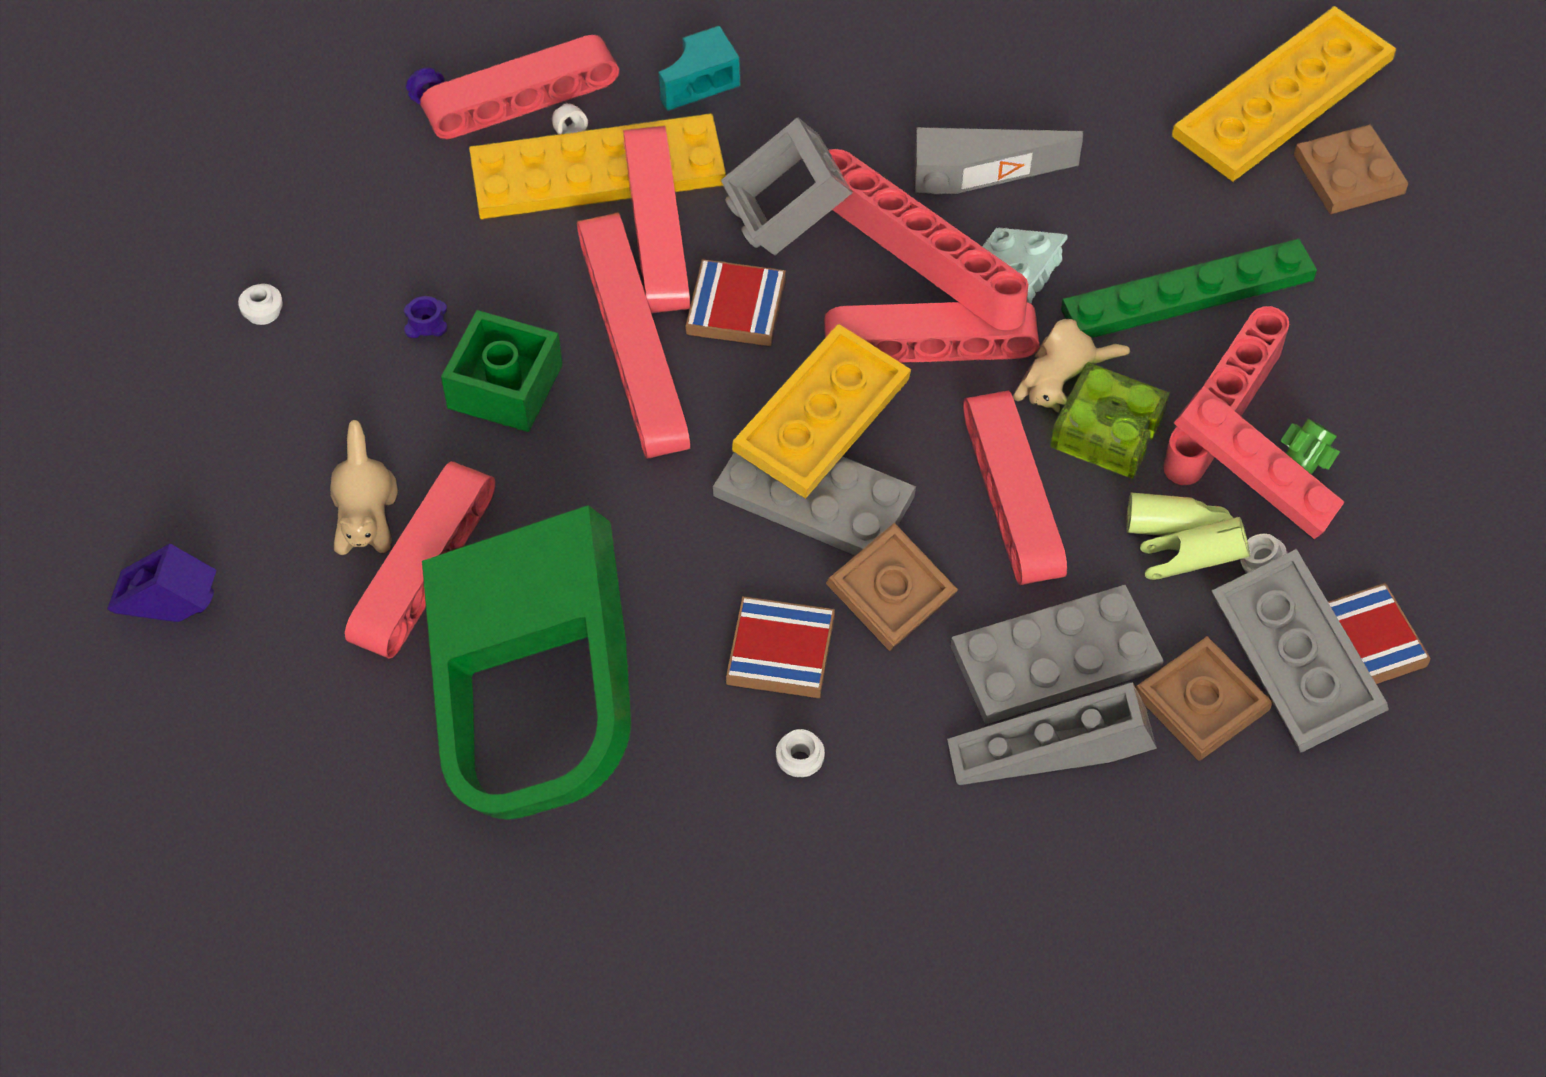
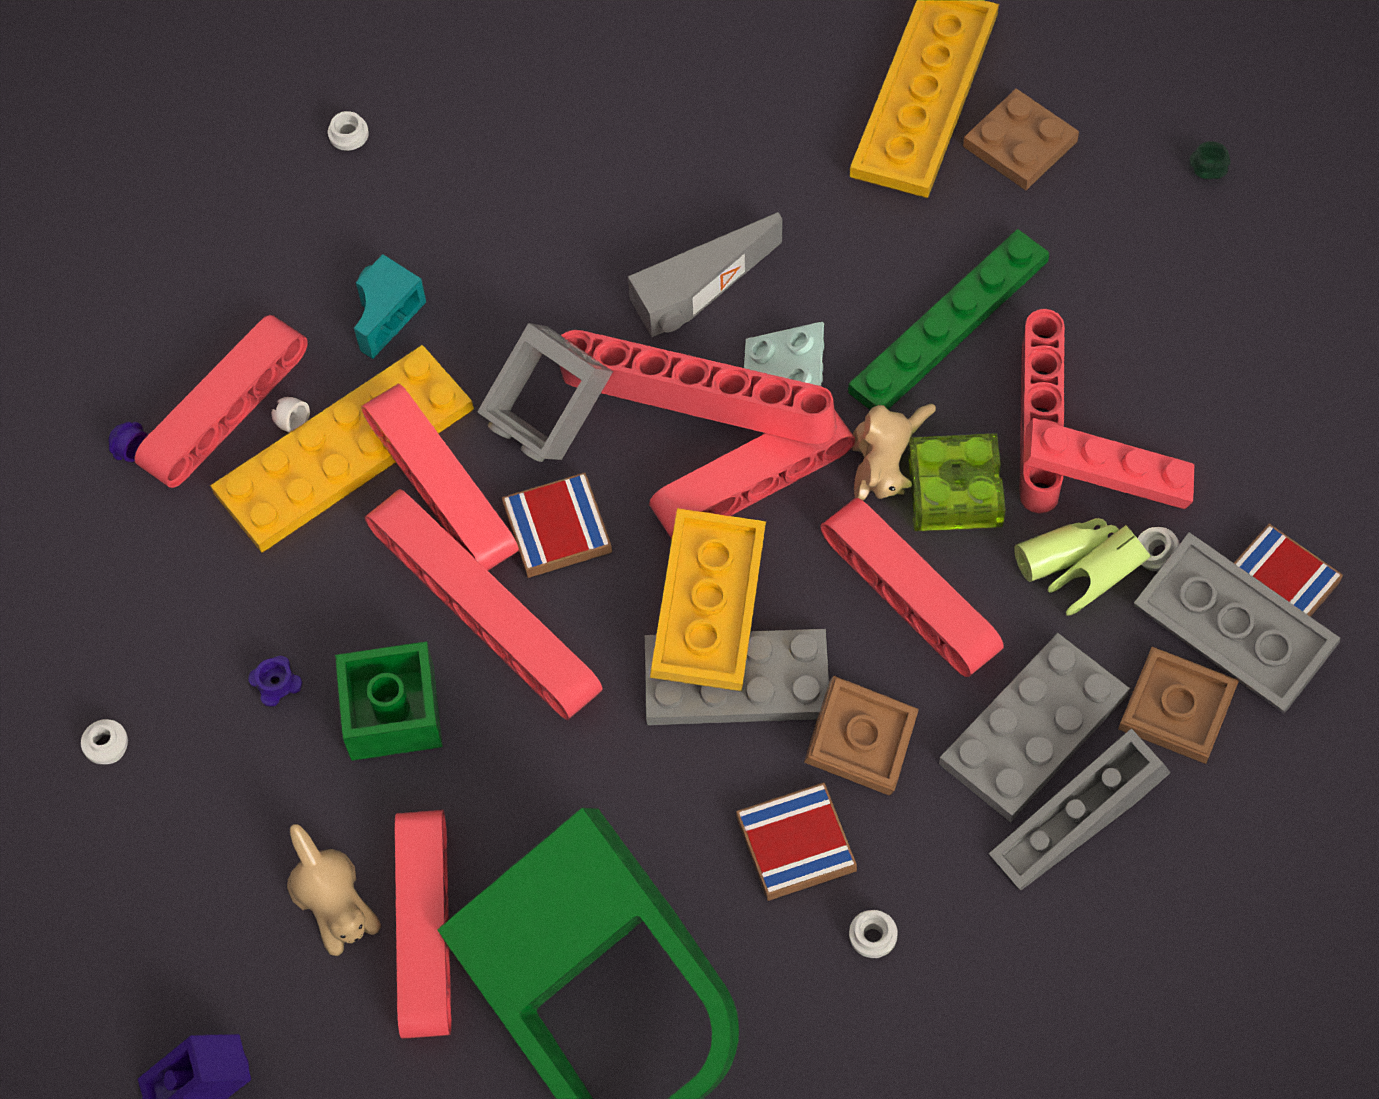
camera: 25 degrees left, 5 degrees up
(1310, 445) = (1140, 425): bright green gear -> none
(1521, 257) = (1212, 153): none -> clear green plate

